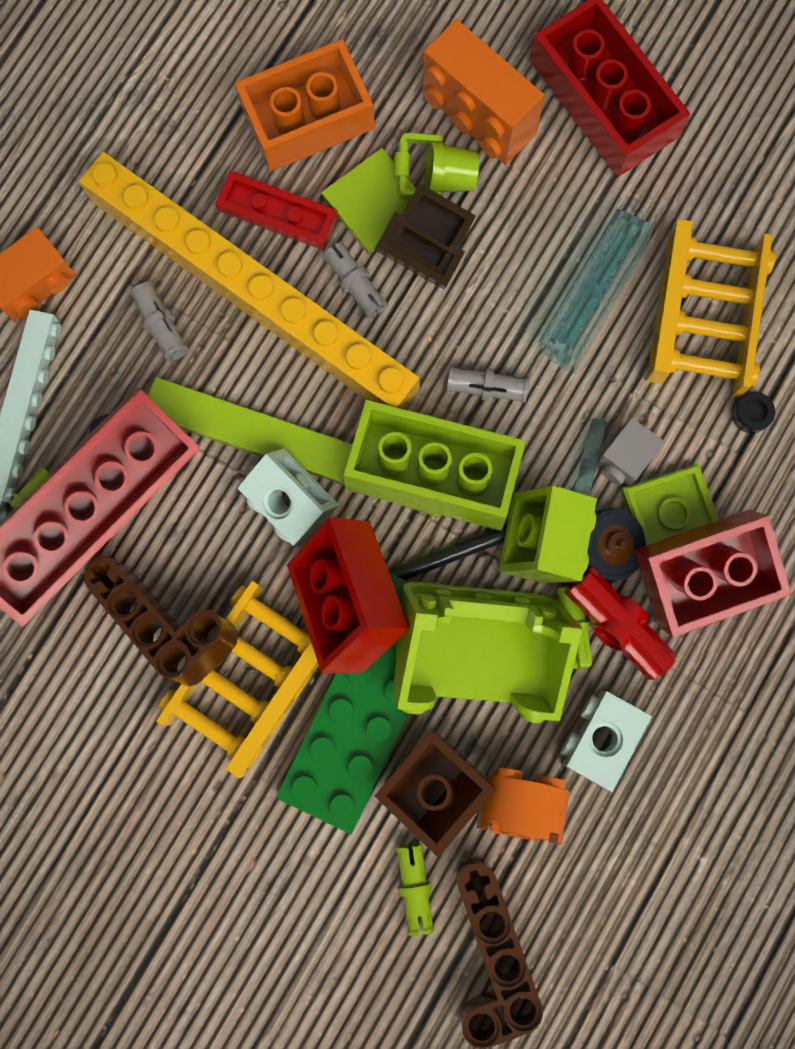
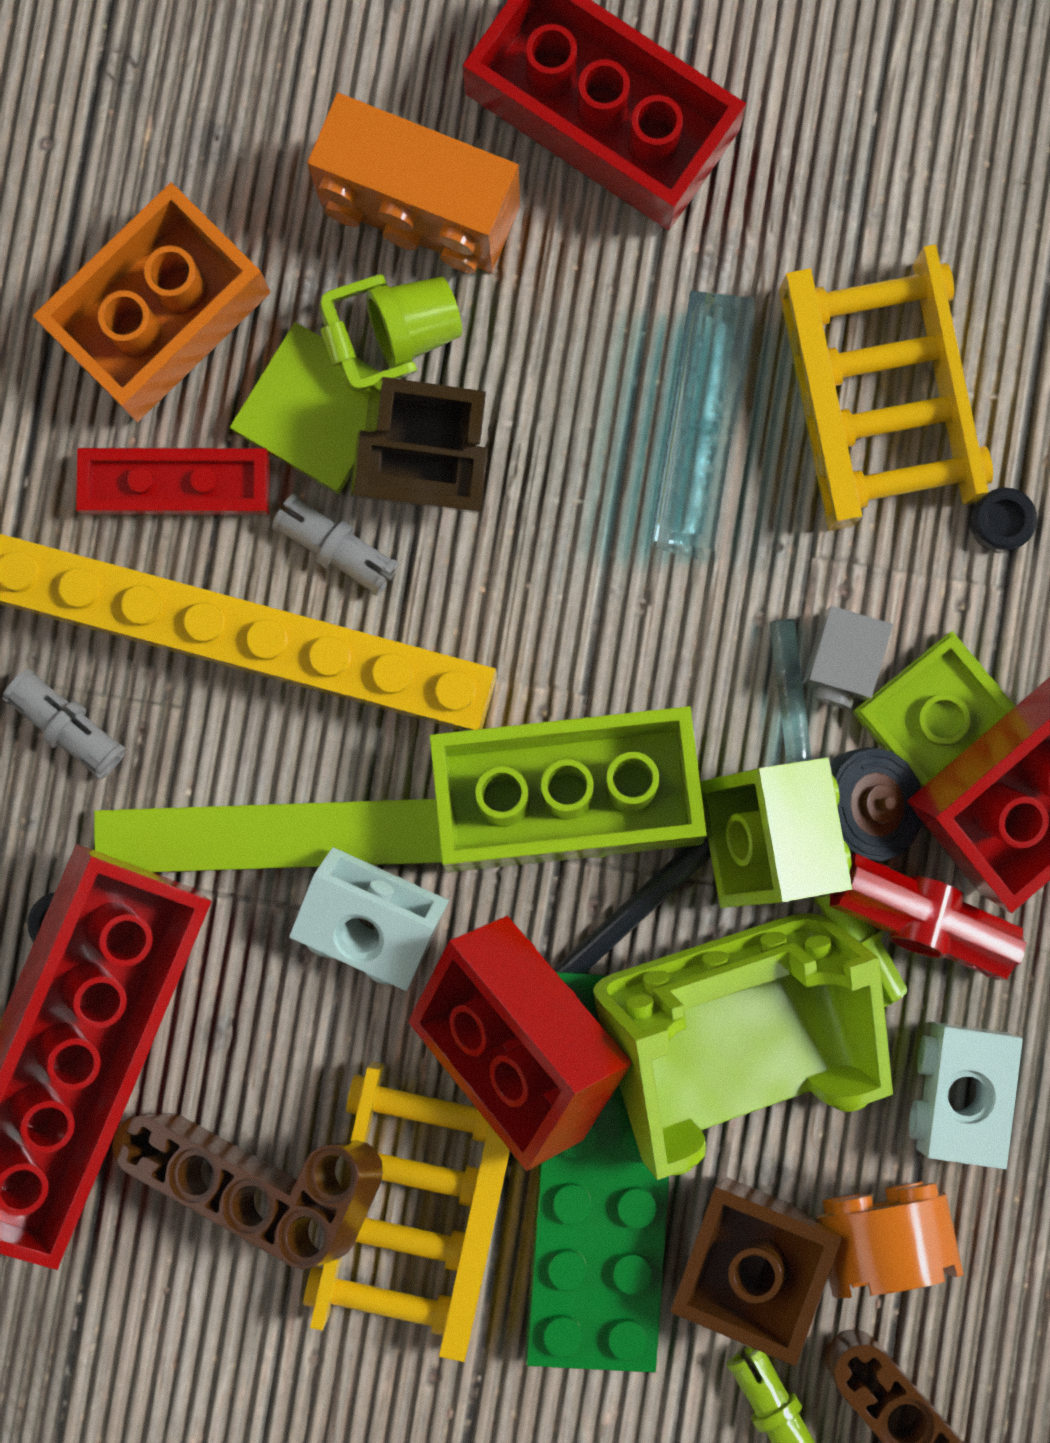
camera: 20 degrees left, 5 degrees up
(488, 384) = (597, 630): light grey pin -> none

